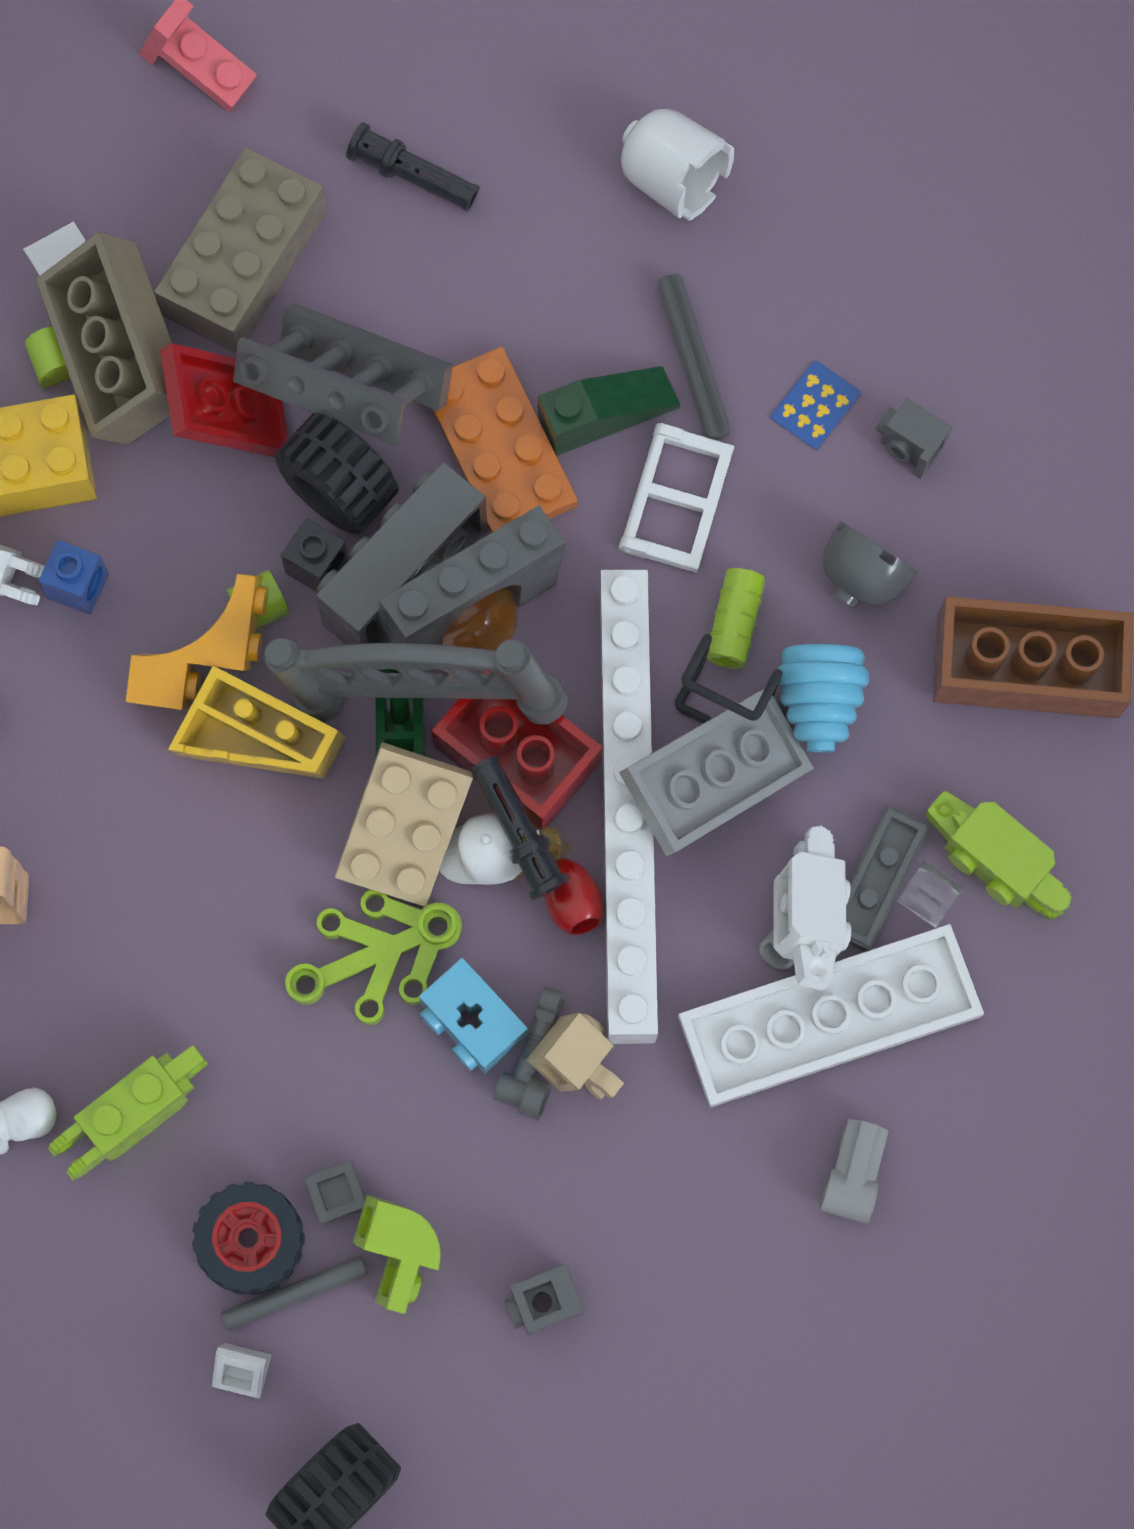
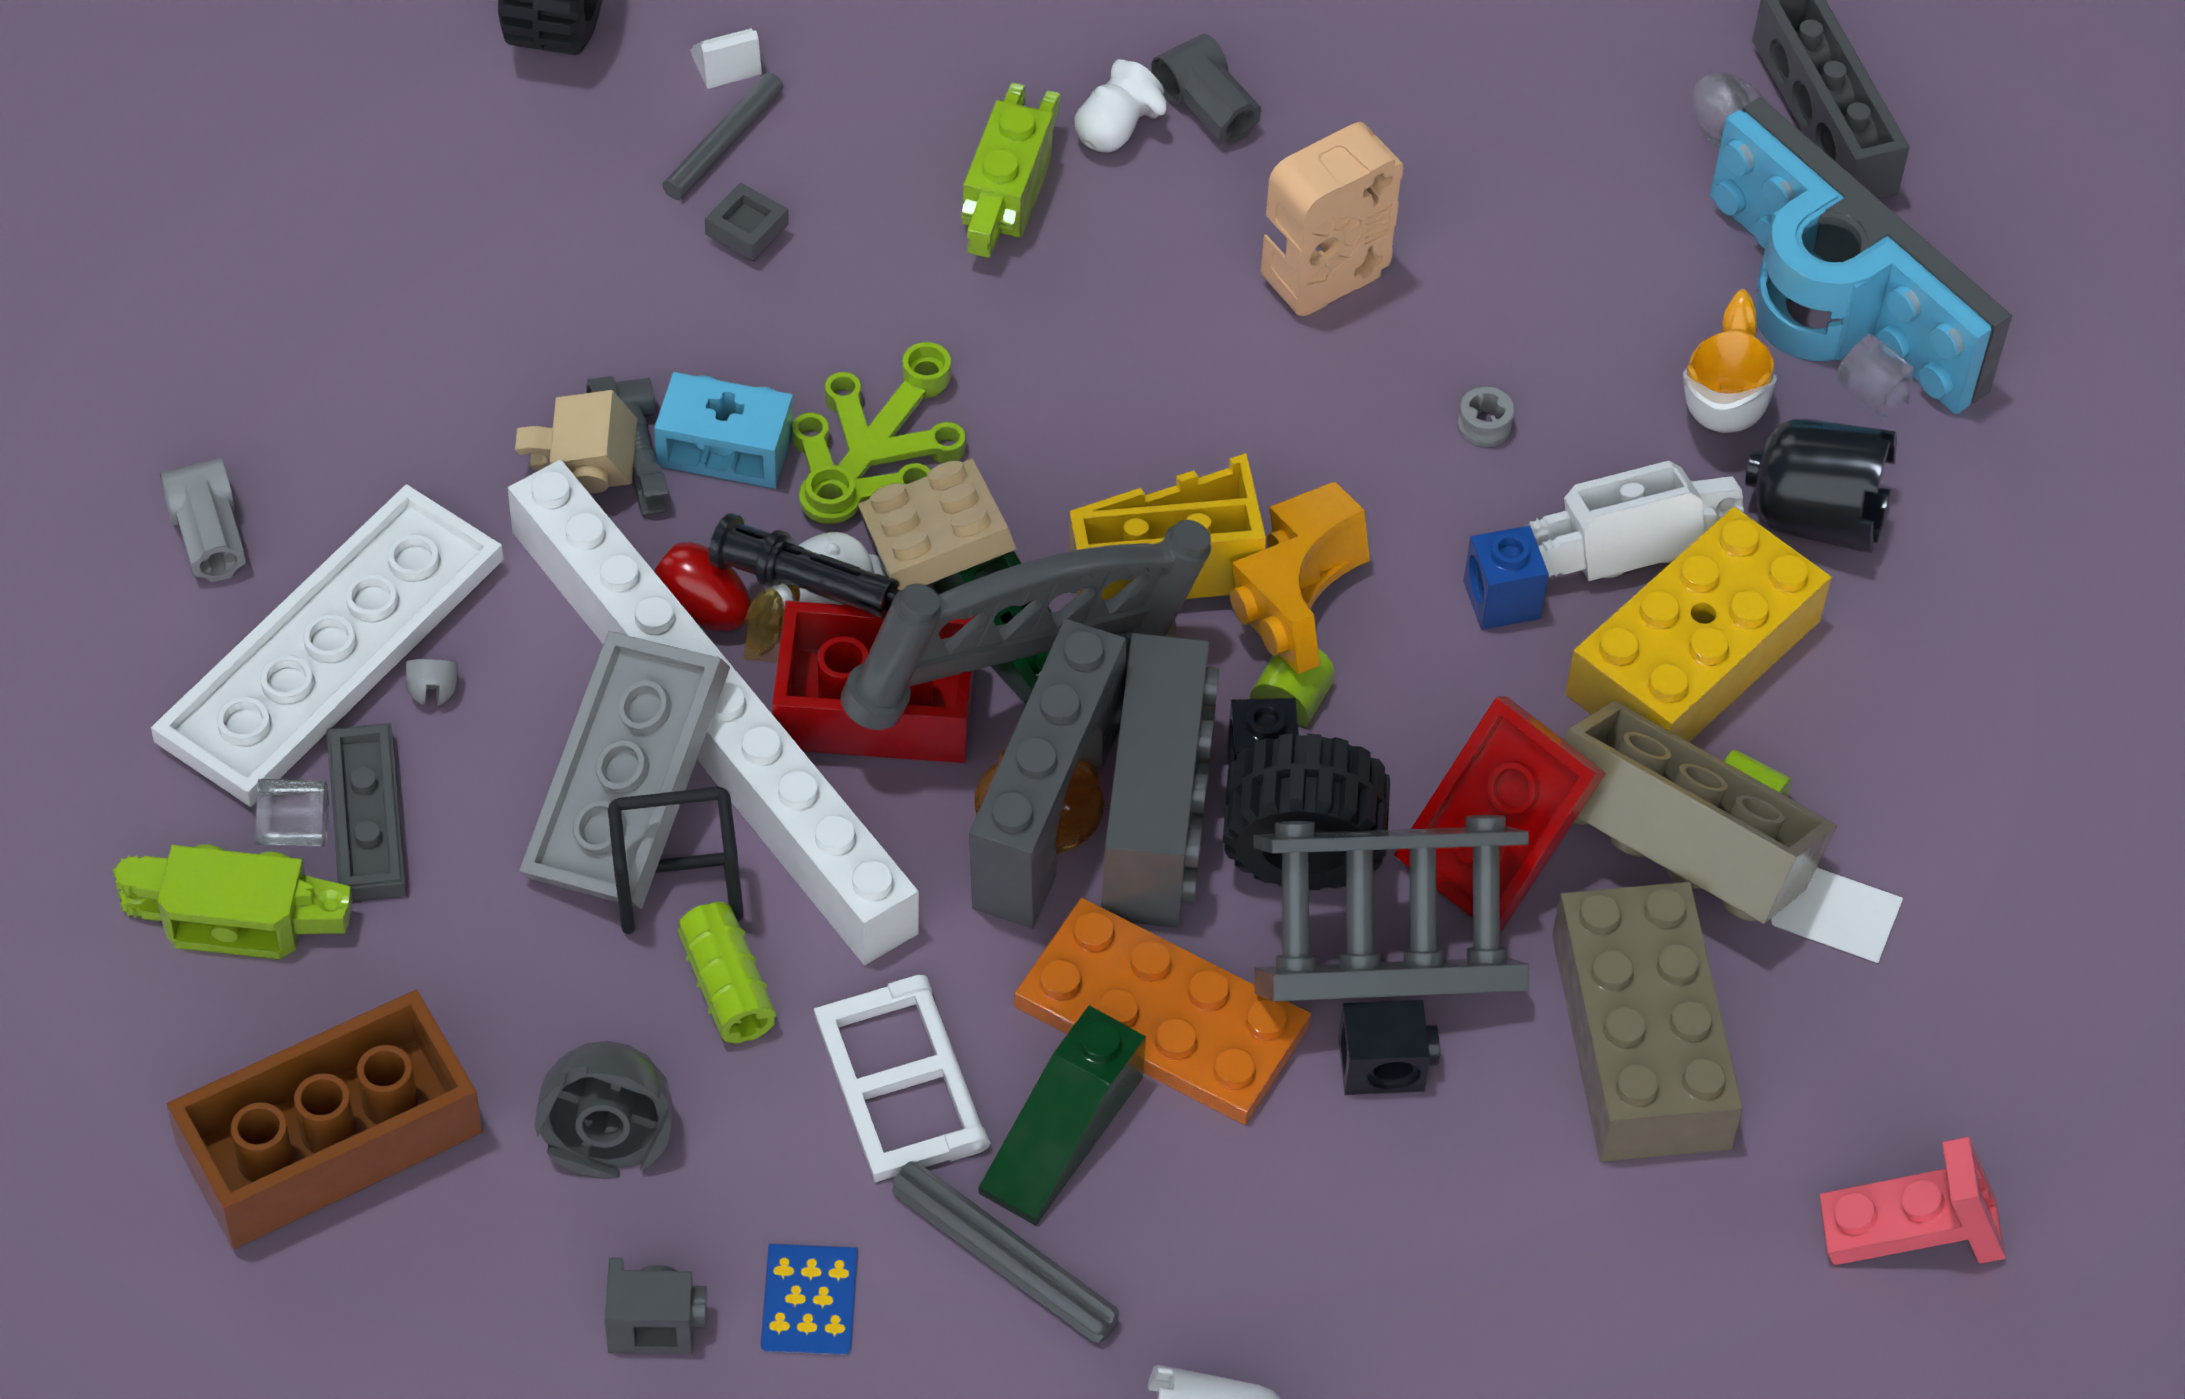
camera: 145 degrees right, 20 degrees down
(226, 1220) = (803, 144): black wheel -> none
(389, 164) = (1567, 1252): black pin -> none
(398, 322) = (1386, 1047): none -> black brick
(407, 1242) = (646, 204): lime brick -> none
(554, 1283) = (459, 242): dark grey brick -> none
(812, 909) = (419, 700): white hinge -> none
(822, 691) = (565, 934): medium azure piece -> none

